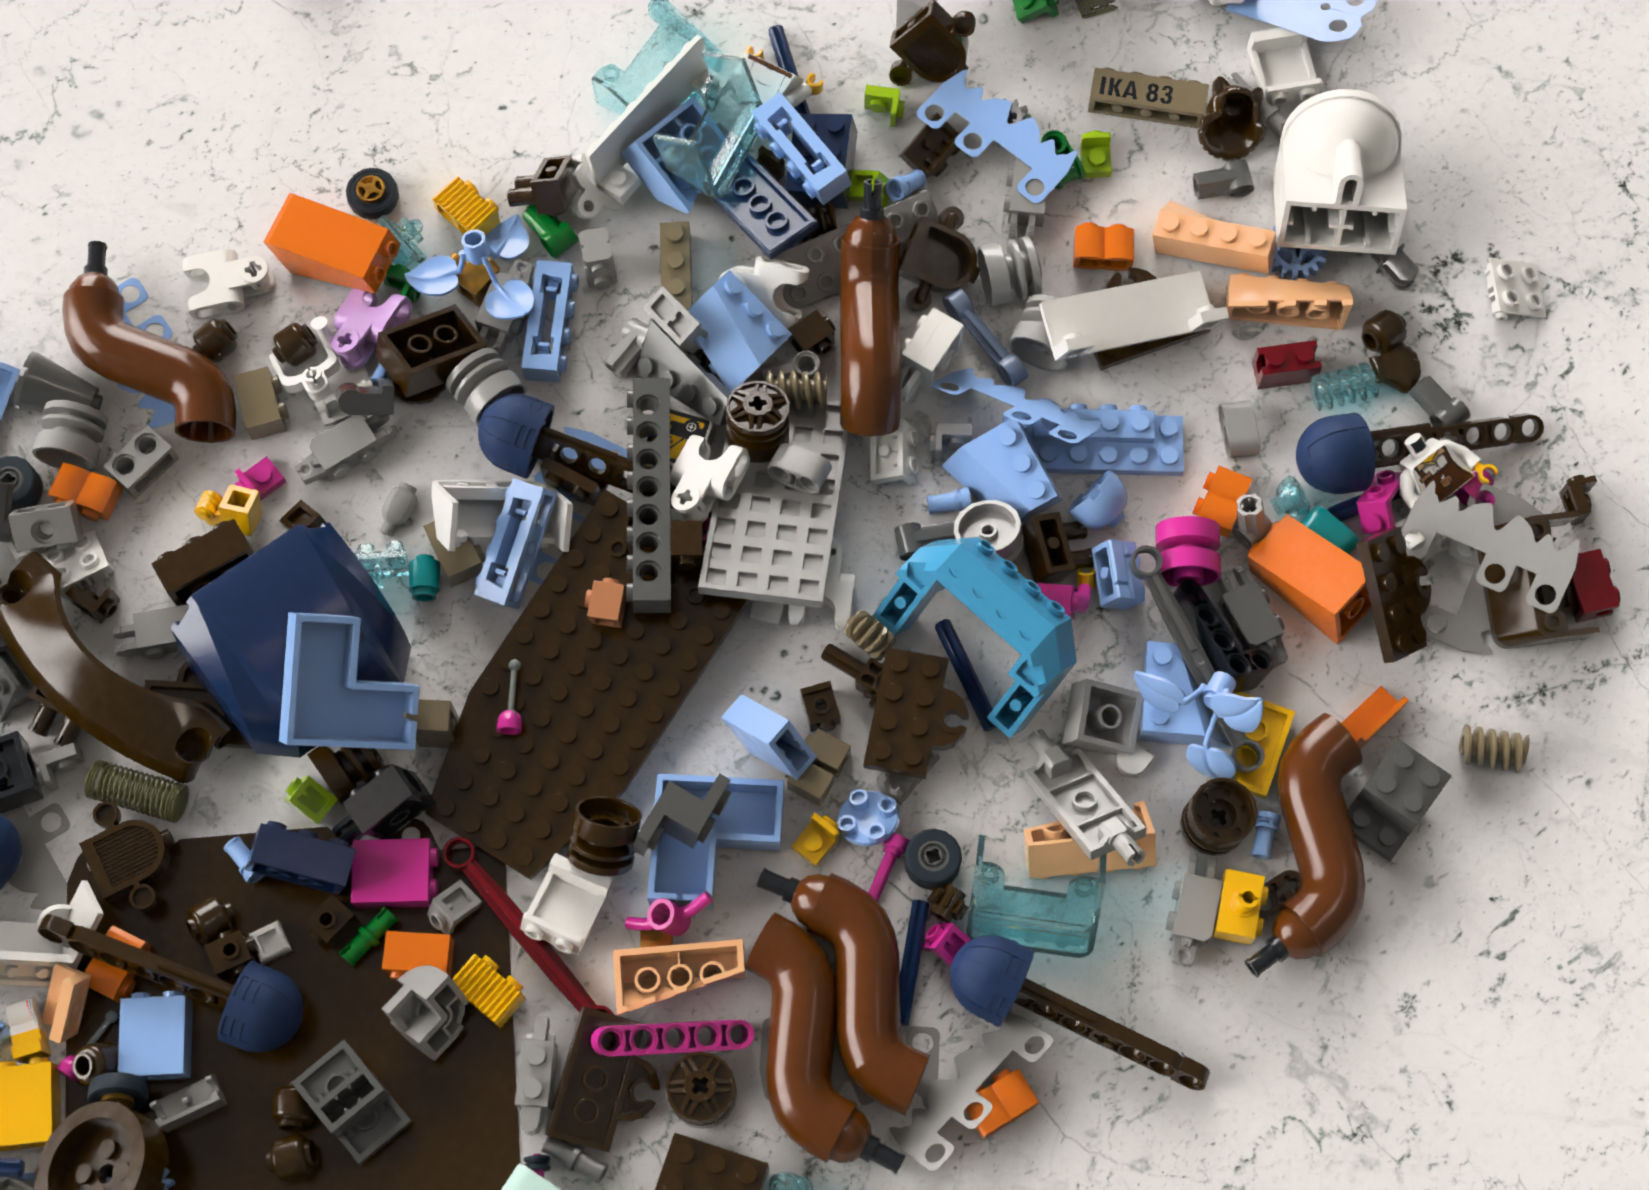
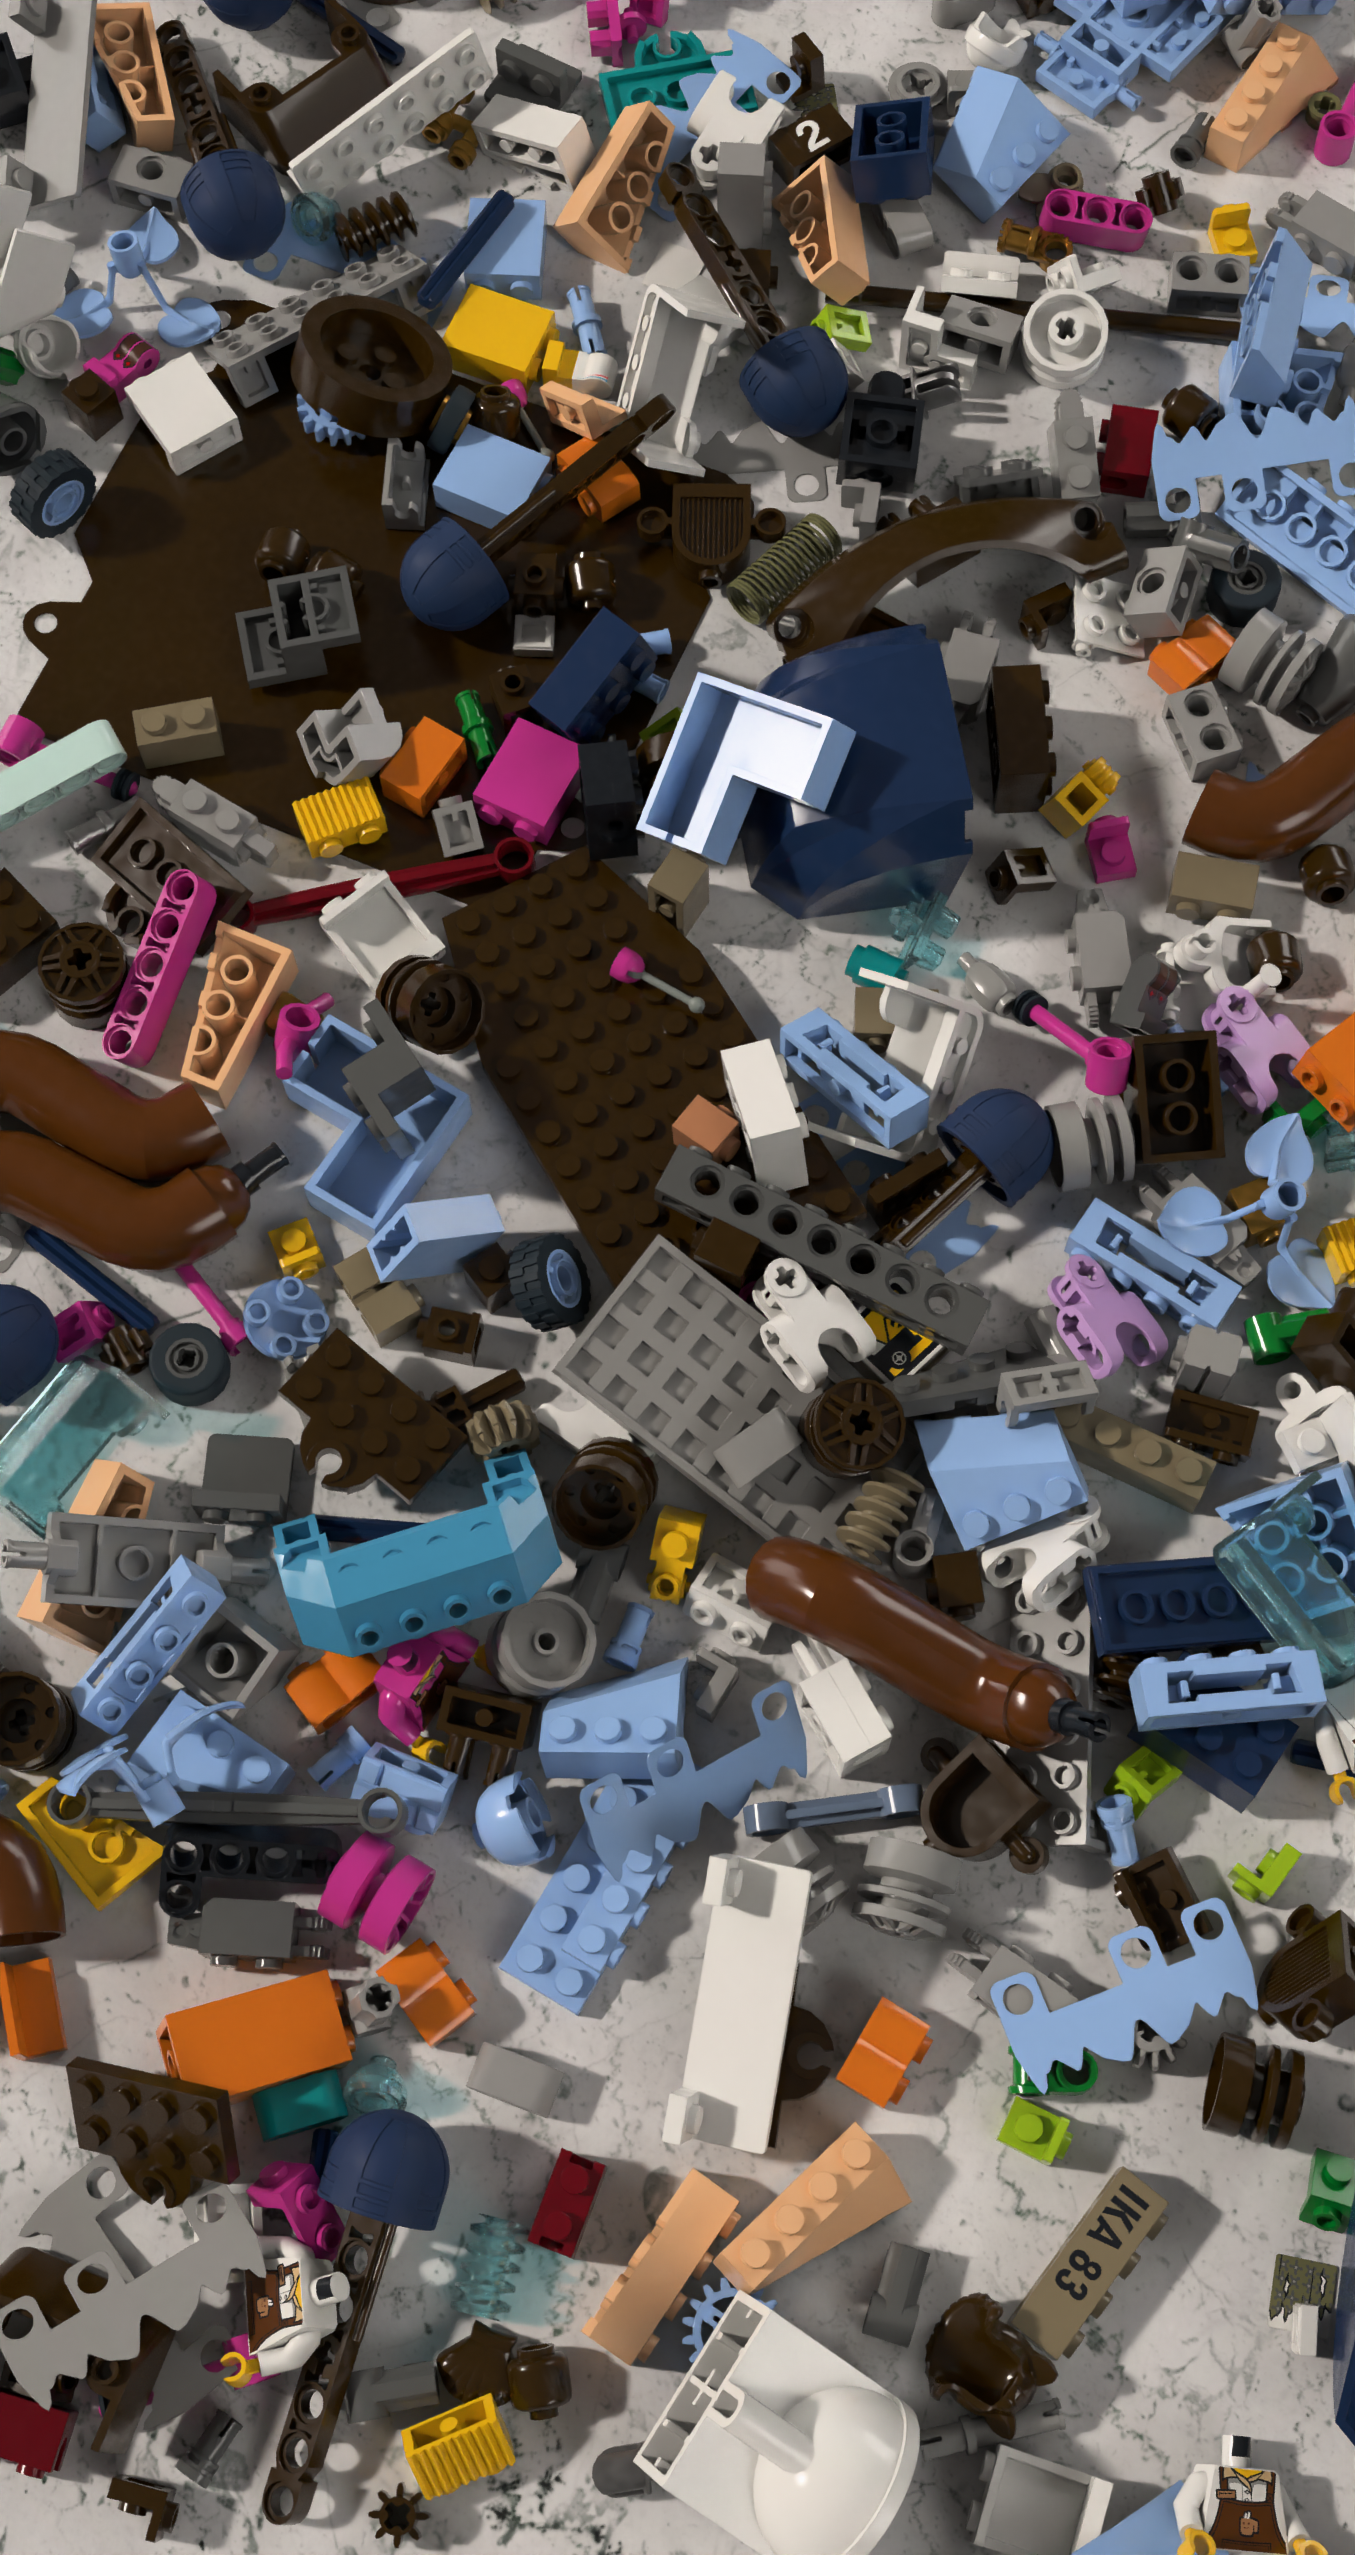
camera: 120 degrees right, 0 degrees up
(430, 391) = (1105, 1057): none -> dark pink piece
(477, 1145) = (178, 733): none -> dark tan brick
(573, 571) = (767, 1113): none -> white wedge
(601, 328) = (1102, 1319): none -> lavender piece
(635, 245) = (1211, 1426): none -> dark brown bracket
(756, 656) = (549, 1282): none -> black wheel
(770, 694) = (489, 1277): none -> dark brown brick
(875, 547) = (600, 1514): none -> dark brown wheel
(880, 497) = (674, 1548): none -> yellow brick
(988, 779) = (245, 1480): none -> dark grey bracket
(1010, 53) = (1253, 2091): none -> dark brown wheel
(1092, 654) = (332, 1687): none -> orange brick
(1121, 626) = (348, 1751): none -> light blue pin
(1128, 763) = (148, 1645): none -> light blue brick
(1443, 352) = (458, 2447): none -> yellow brick
(1495, 358) = (386, 2513): none -> dark brown gear
(1535, 483) = (201, 2460): none -> dark grey pin

